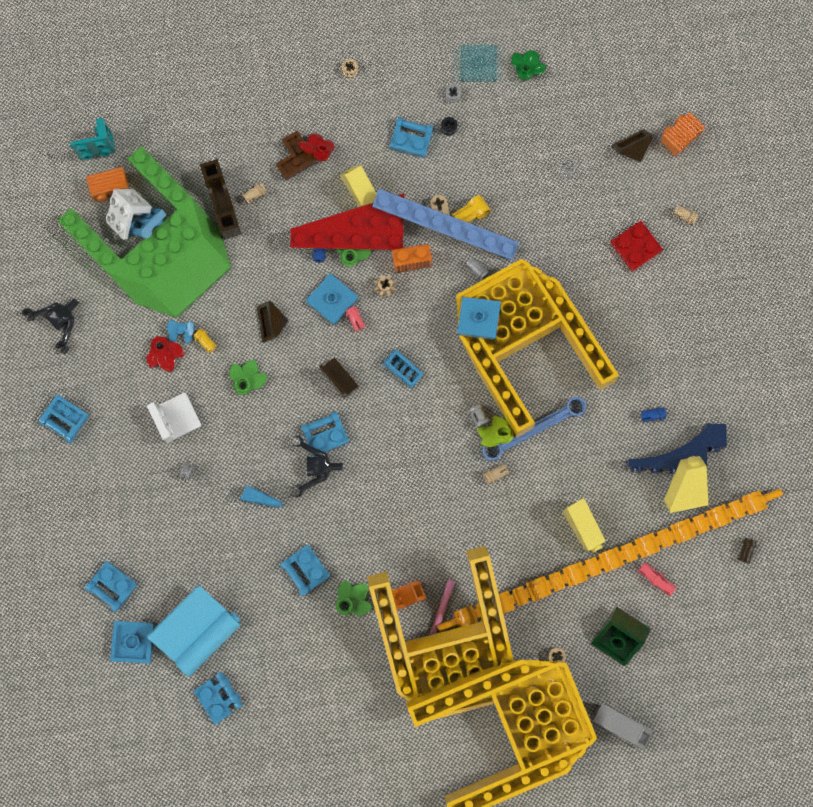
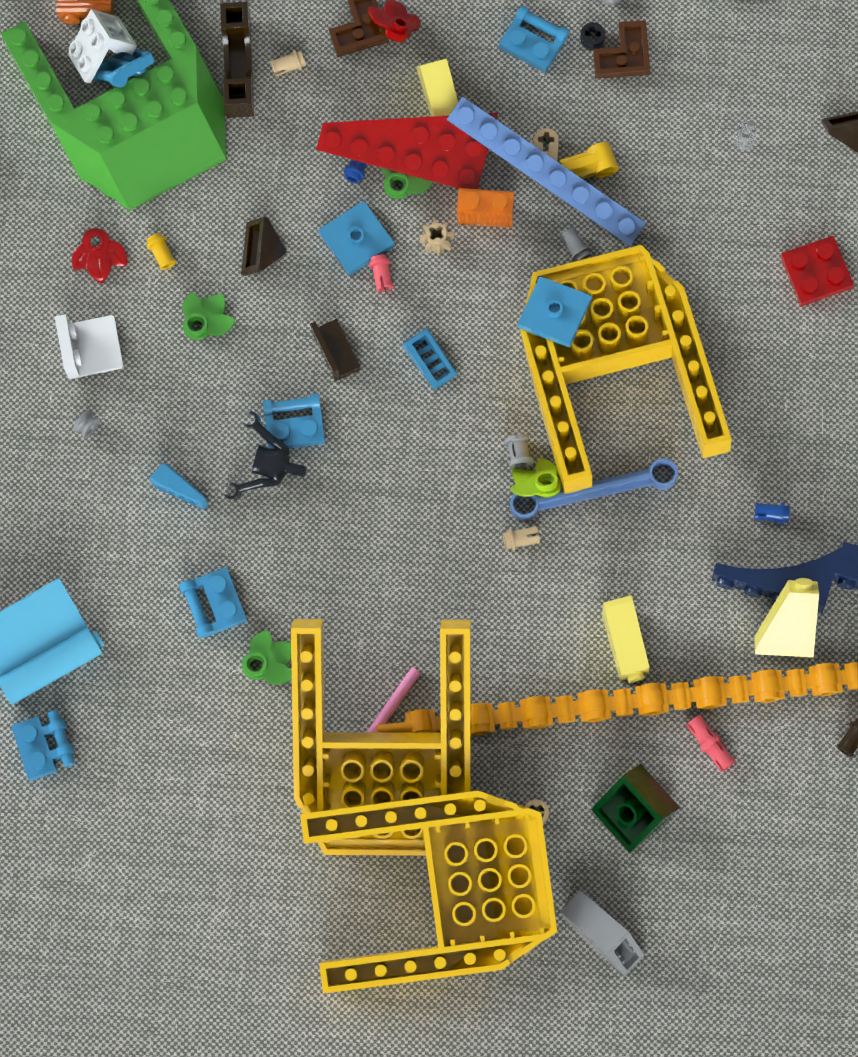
camera: 20 degrees right, 5 degrees down
(174, 328) = (123, 223): dark azure piece -> none
(408, 595) = (347, 672): orange brick -> none
(477, 135) = (629, 58): none -> reddish brown plate

